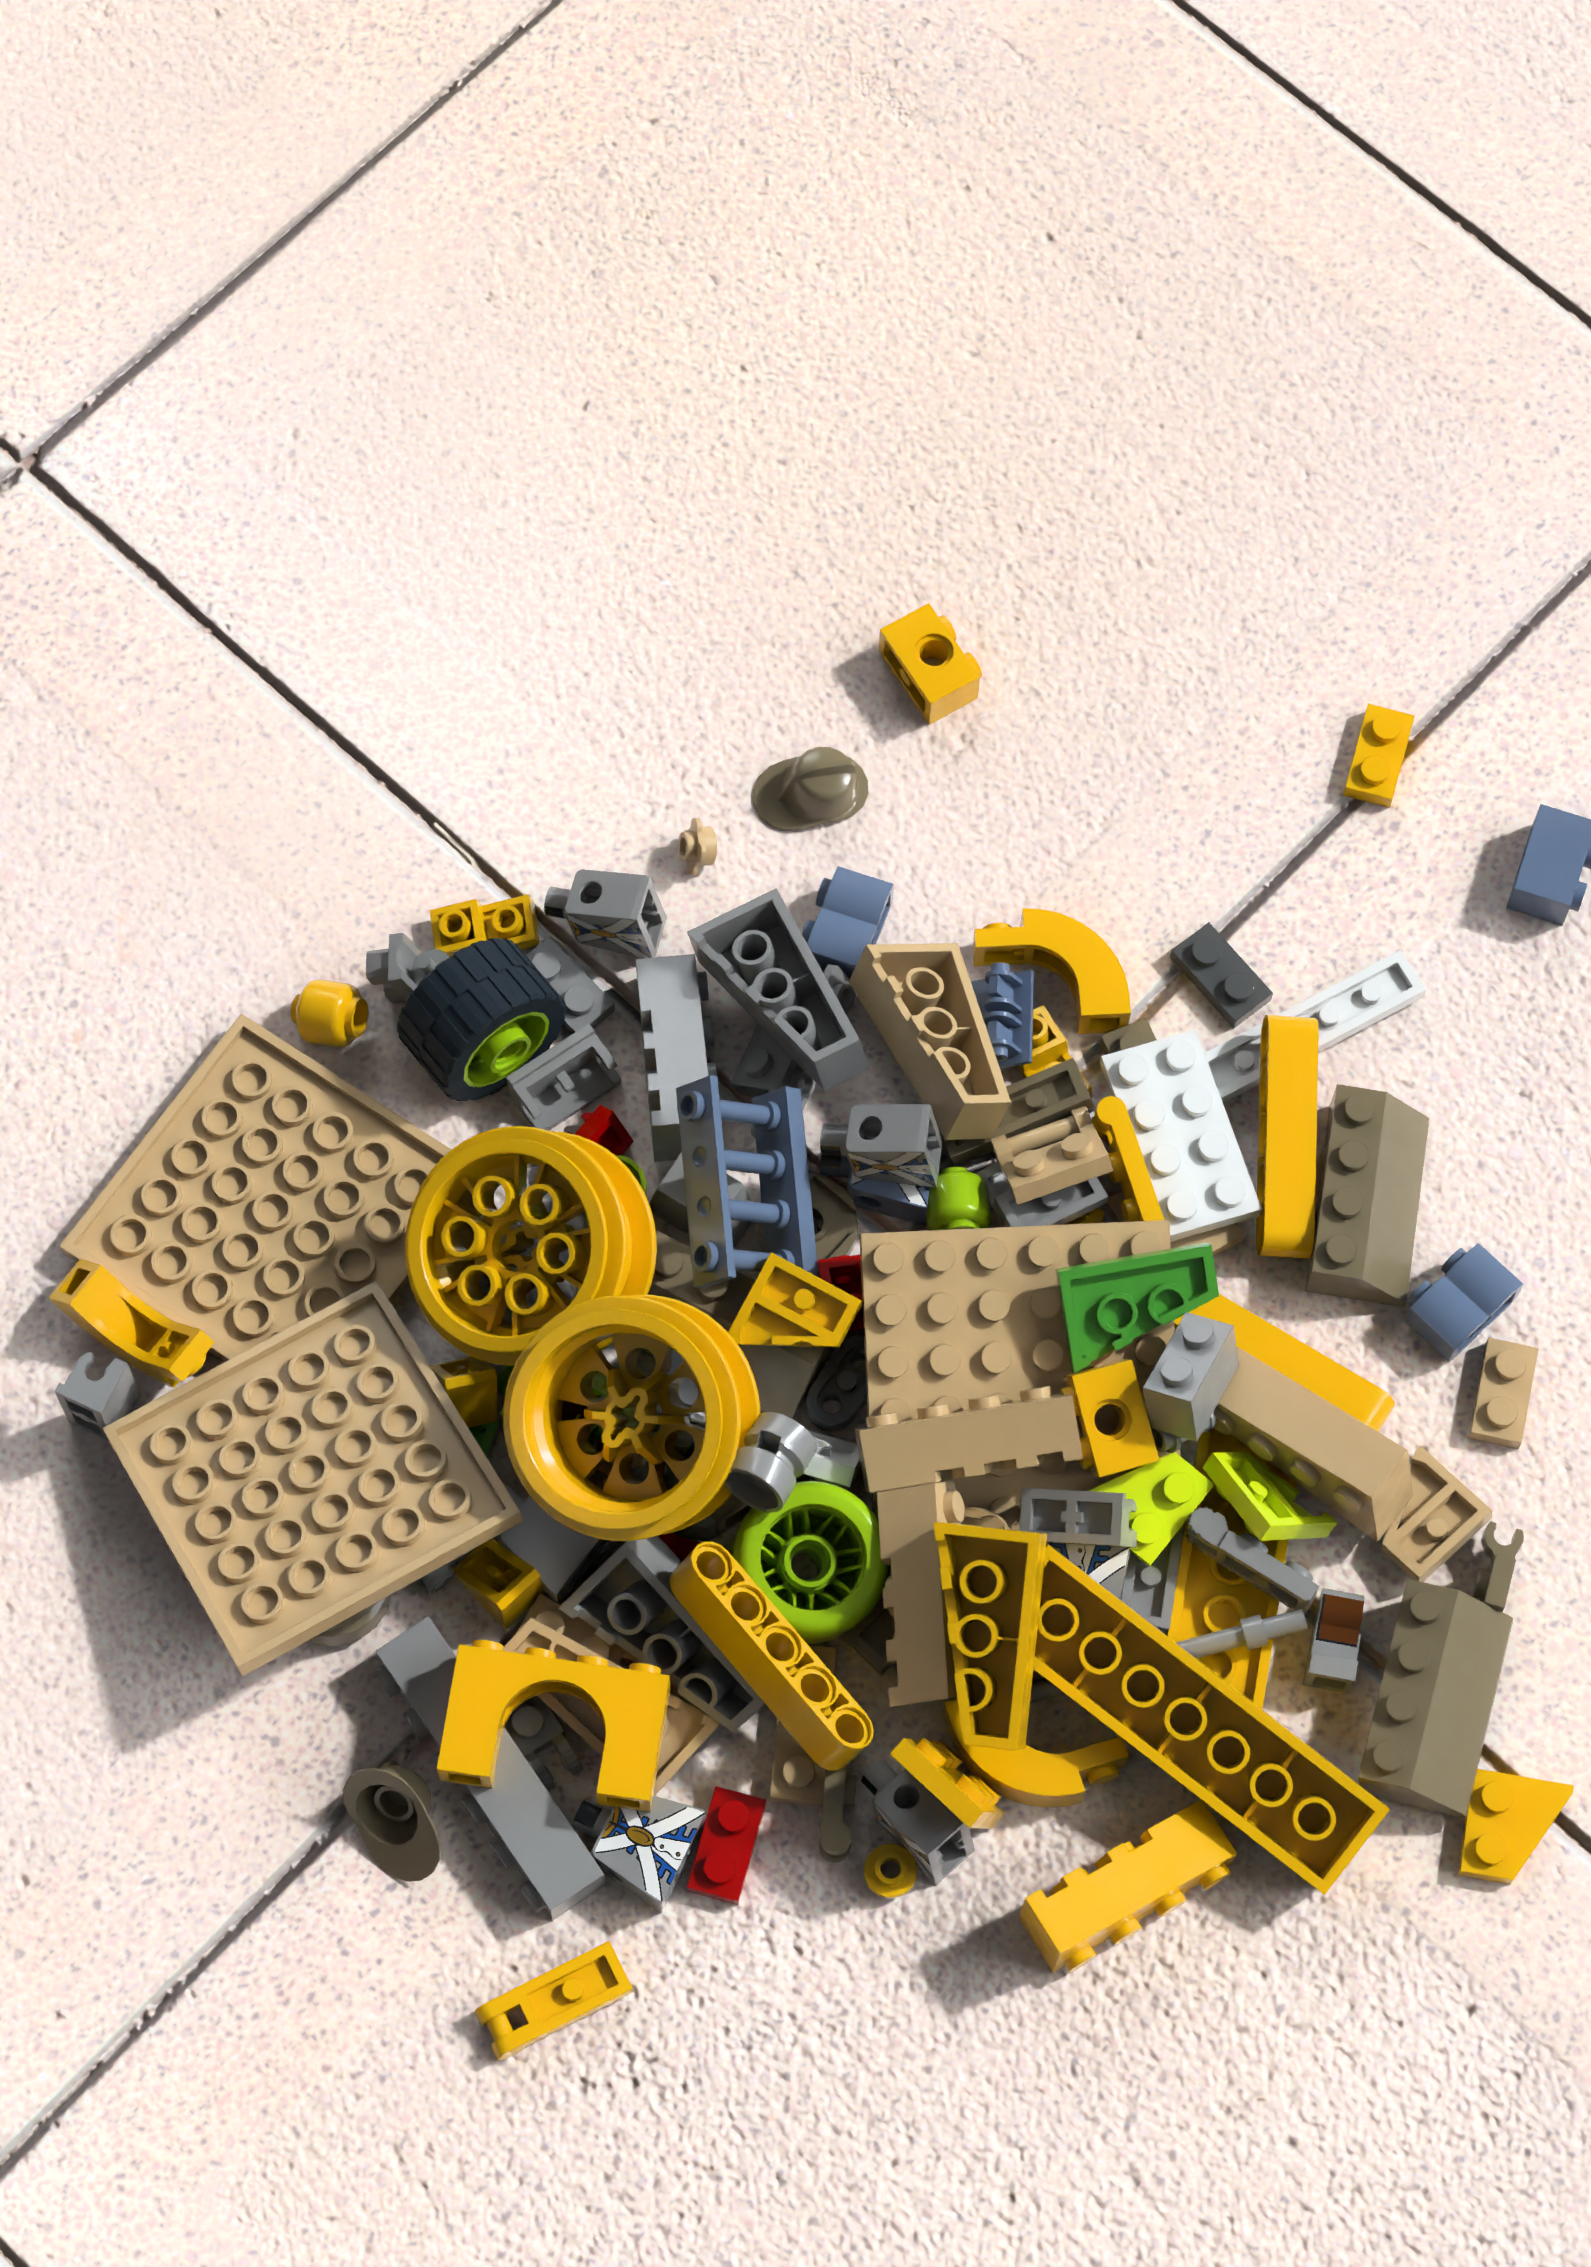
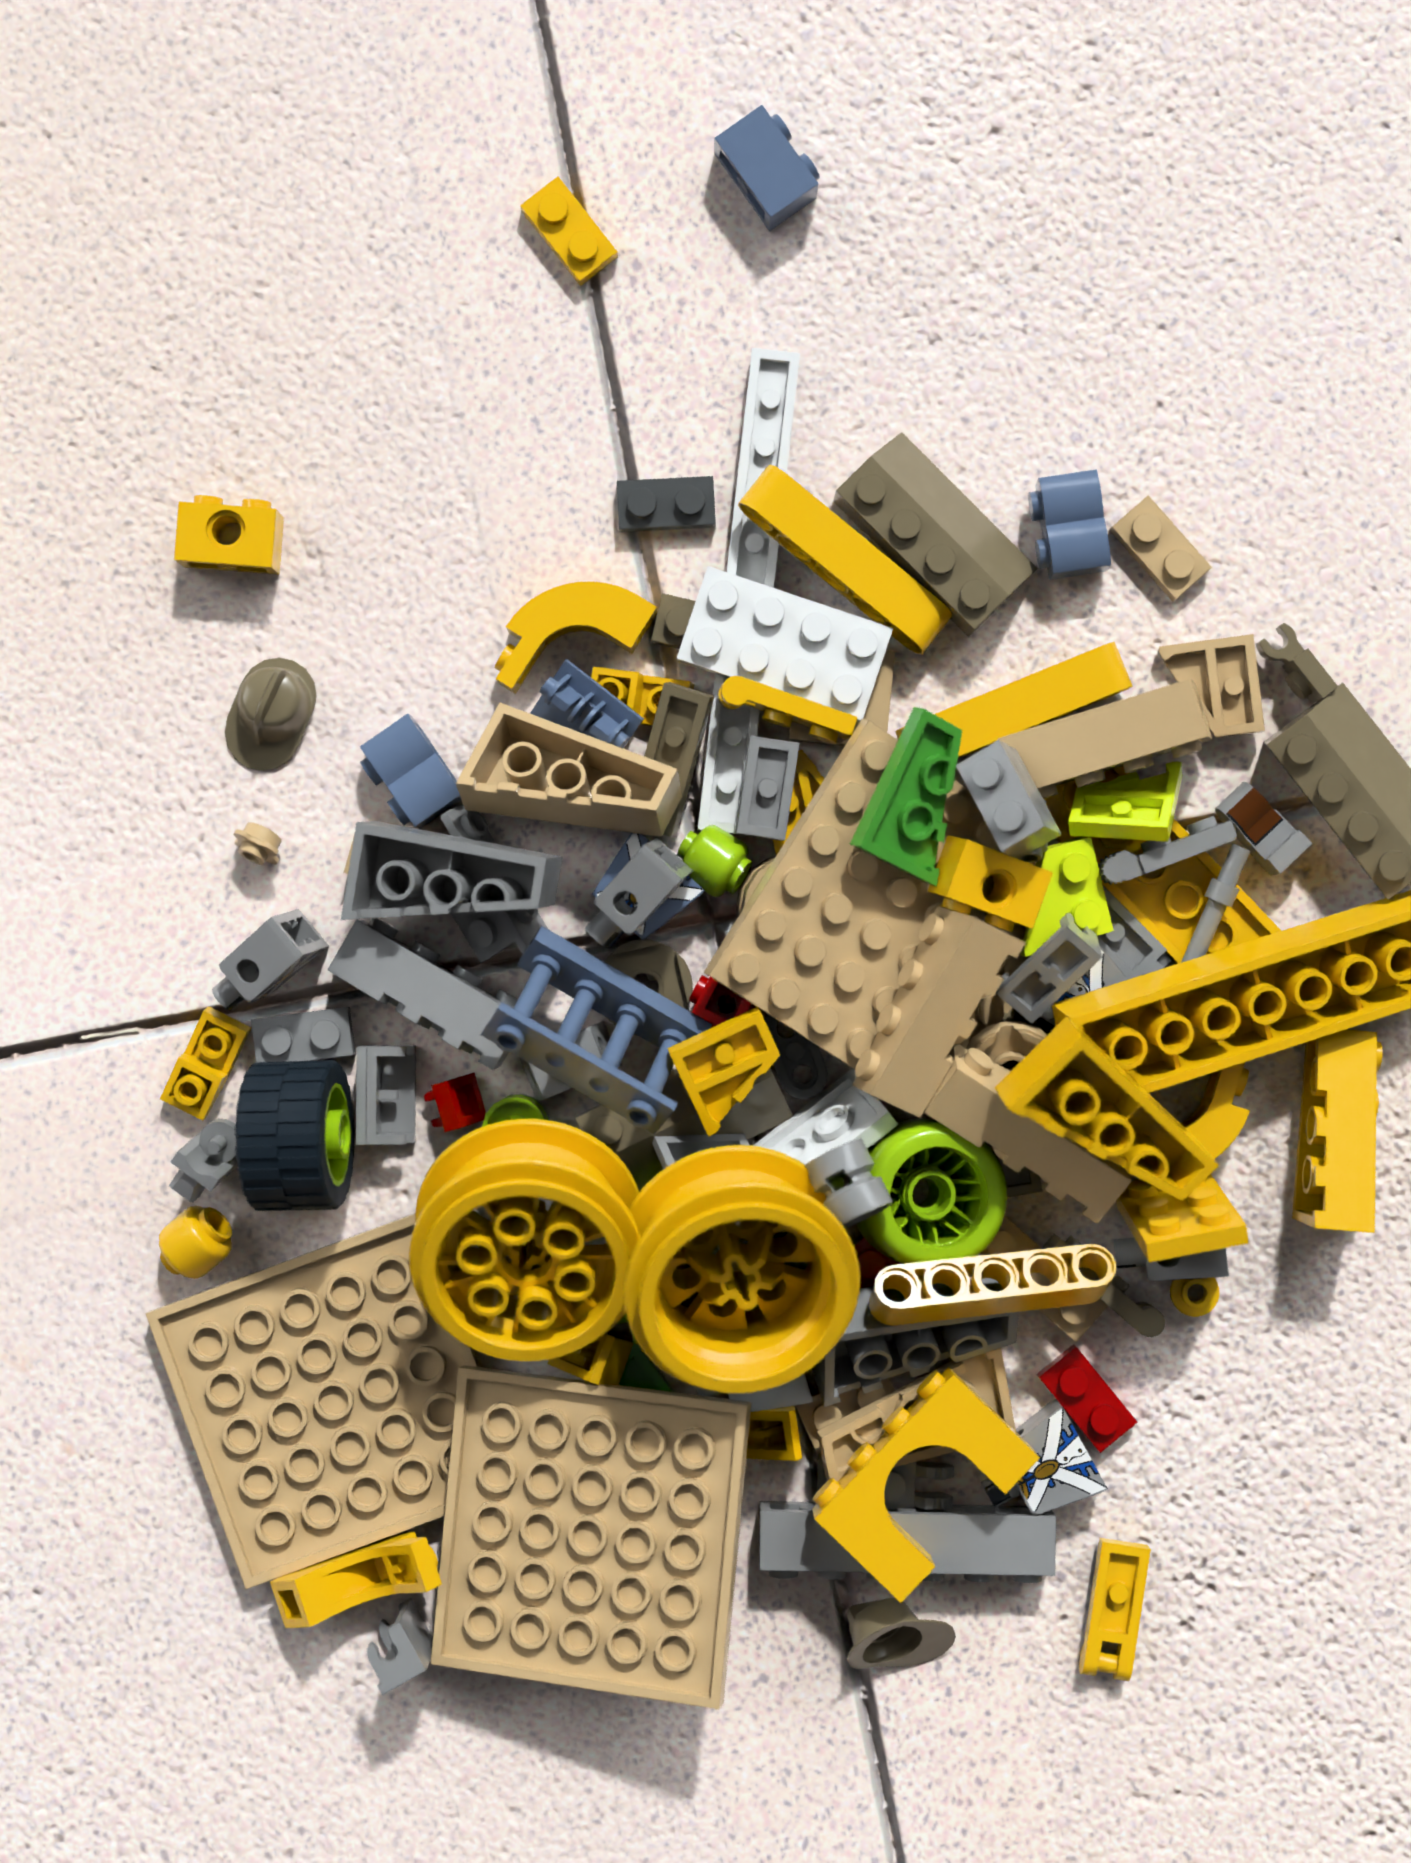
camera: 55 degrees left, 20 degrees up
(1056, 1166) = (748, 766): tan plate -> none

